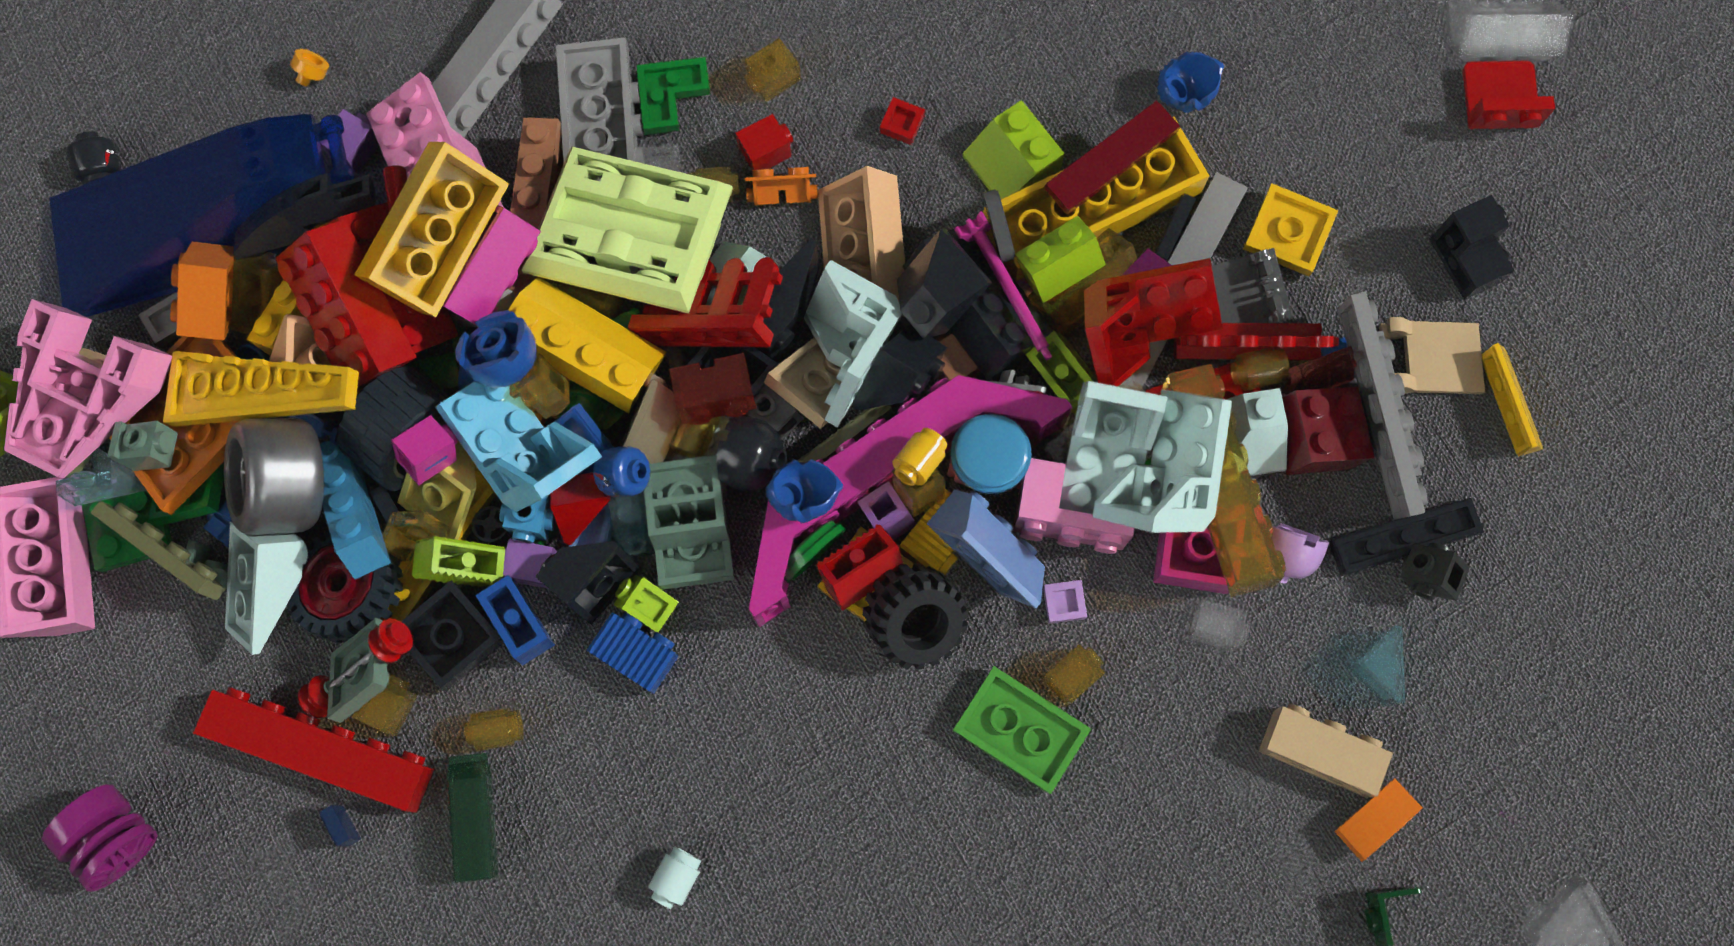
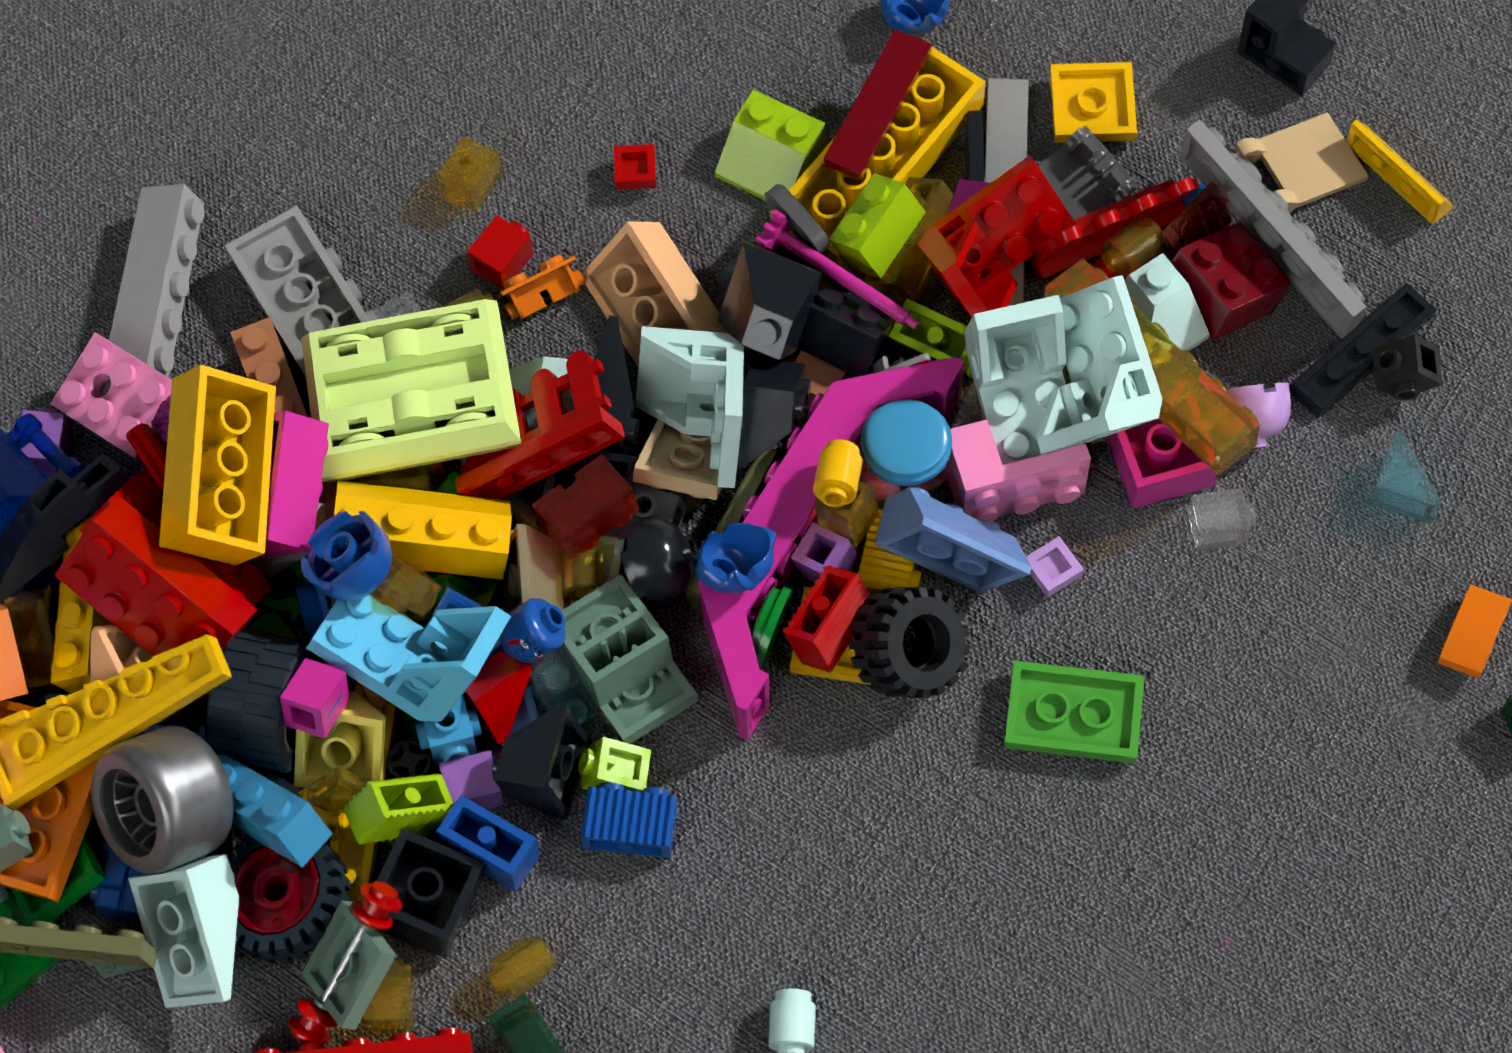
camera: 25 degrees left, 10 degrees down
(663, 84) = (359, 242): green plate -> none
(1074, 674) = (1099, 632): clear yellow brick -> none
(1326, 750) = (1389, 589): tan brick -> none

